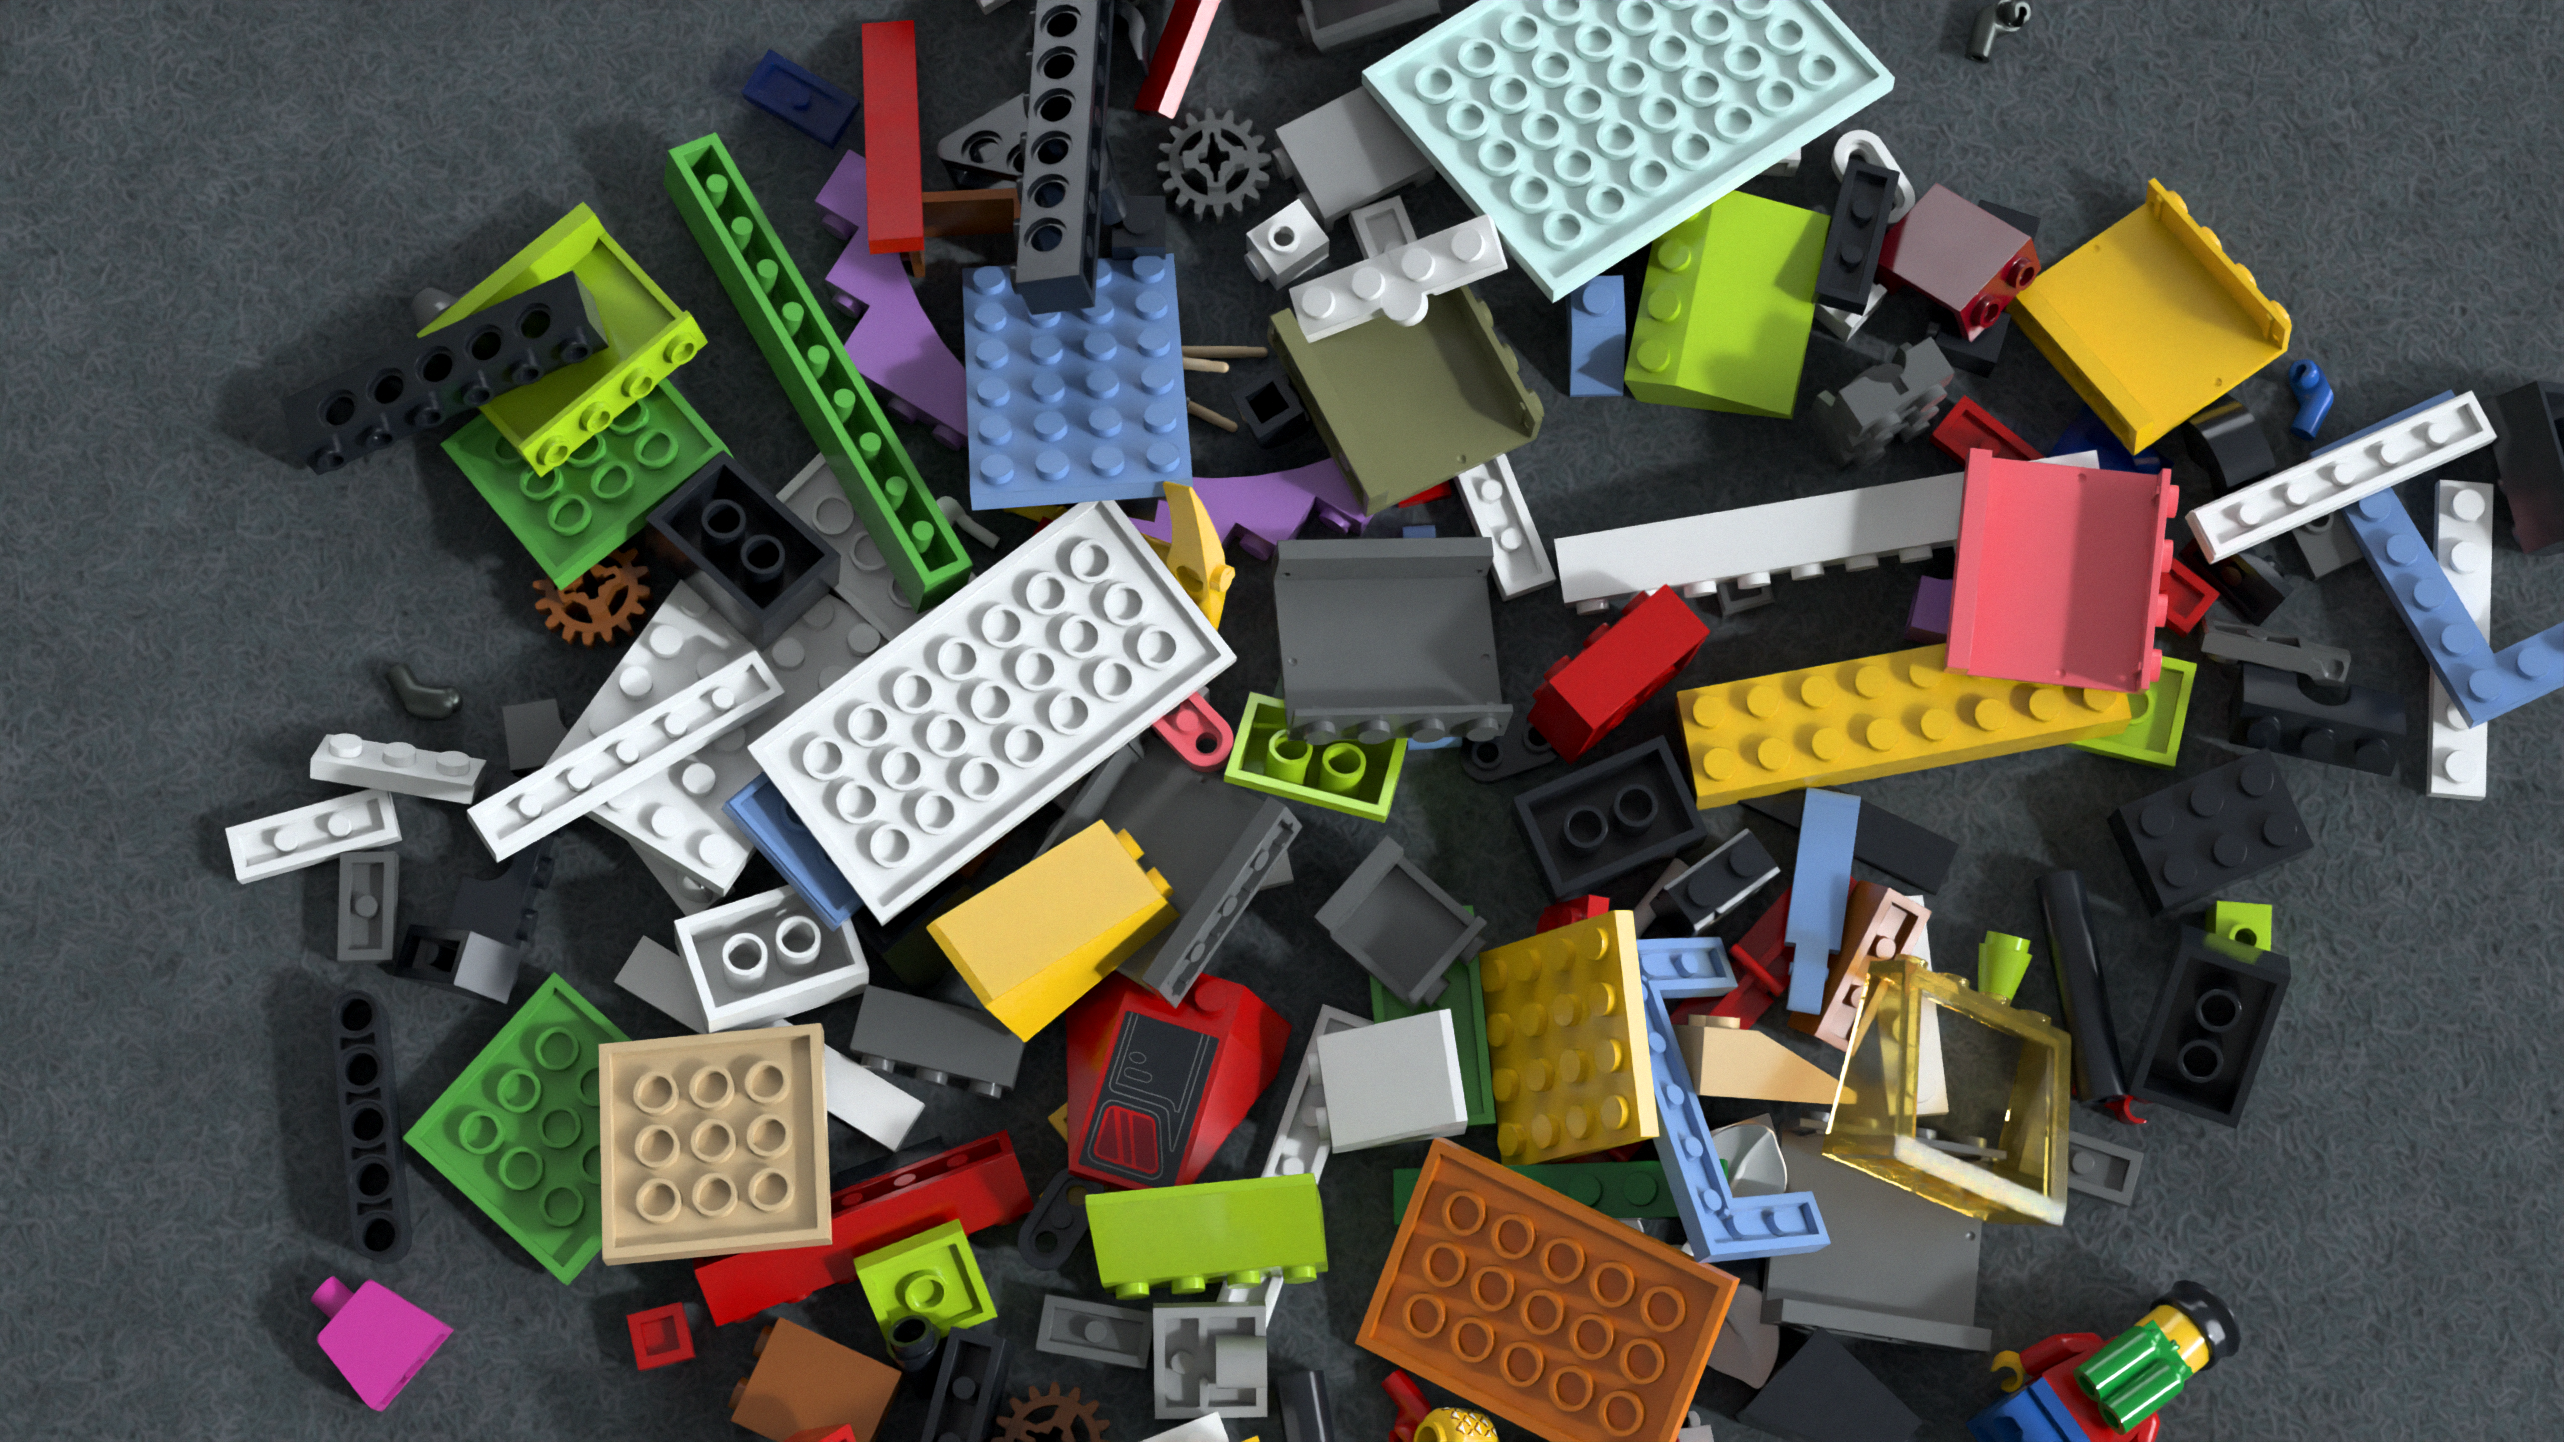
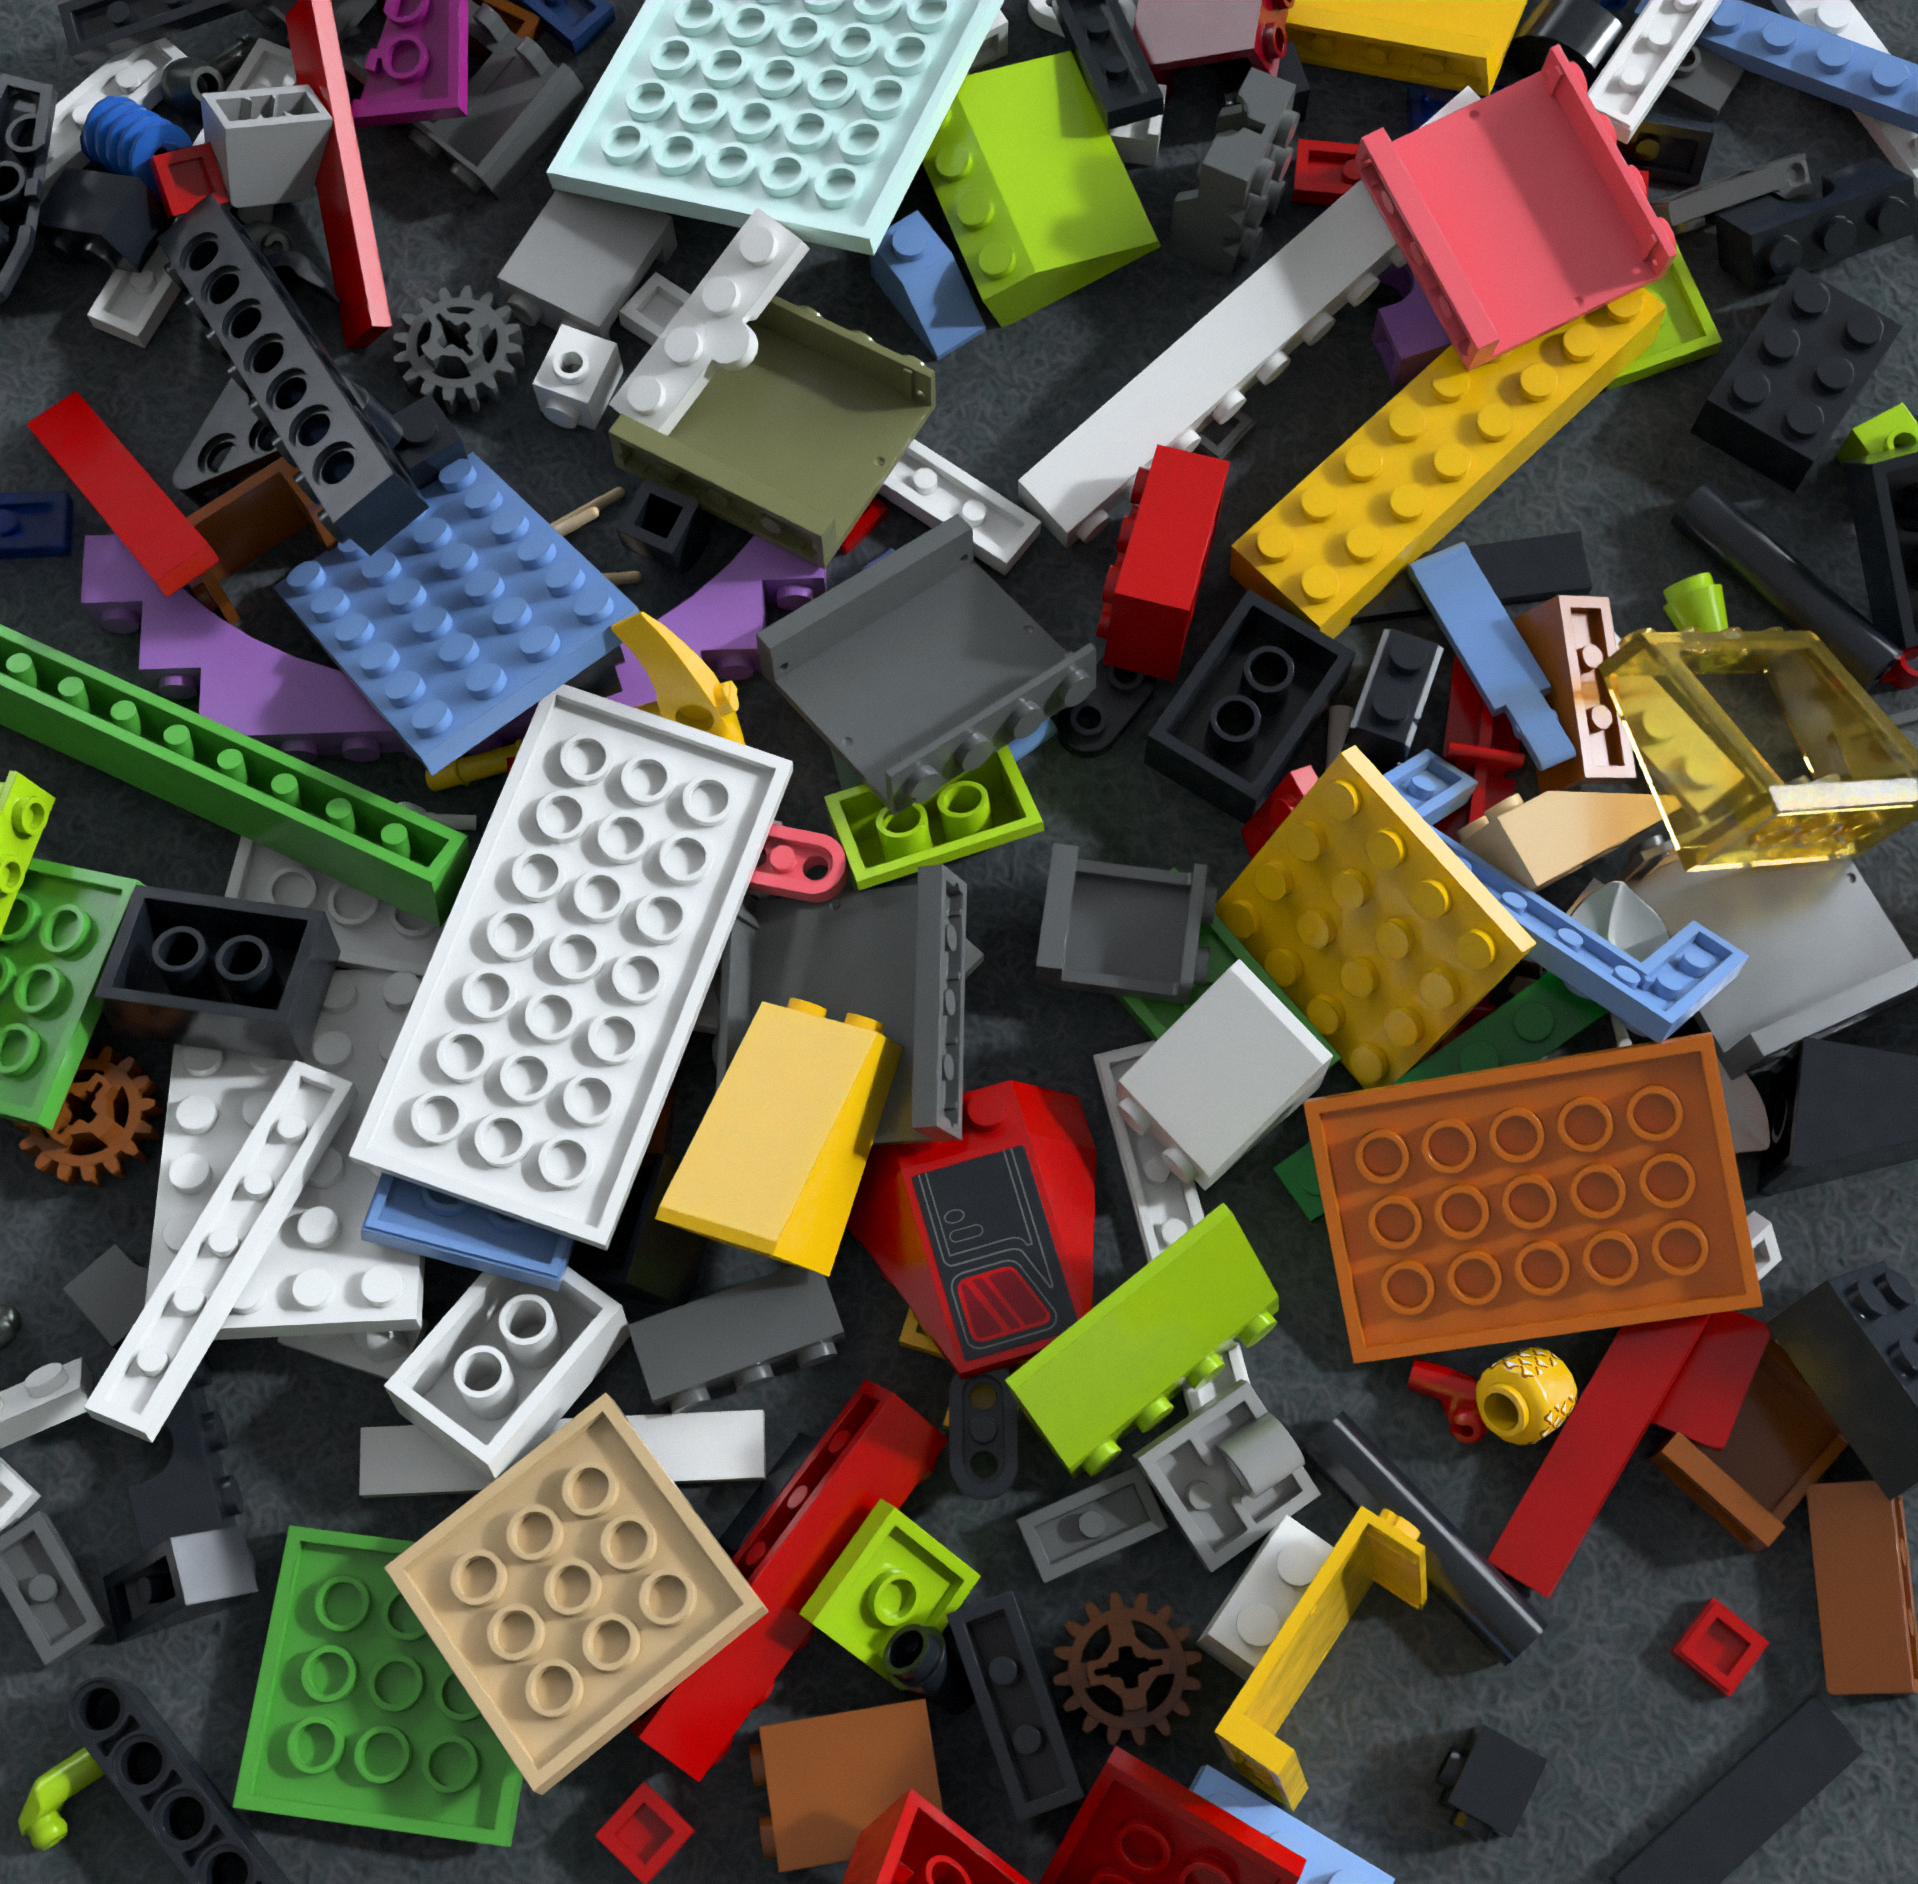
camera: 30 degrees left, 5 degrees down
(288, 1049) = (48, 1795): none -> lime arm

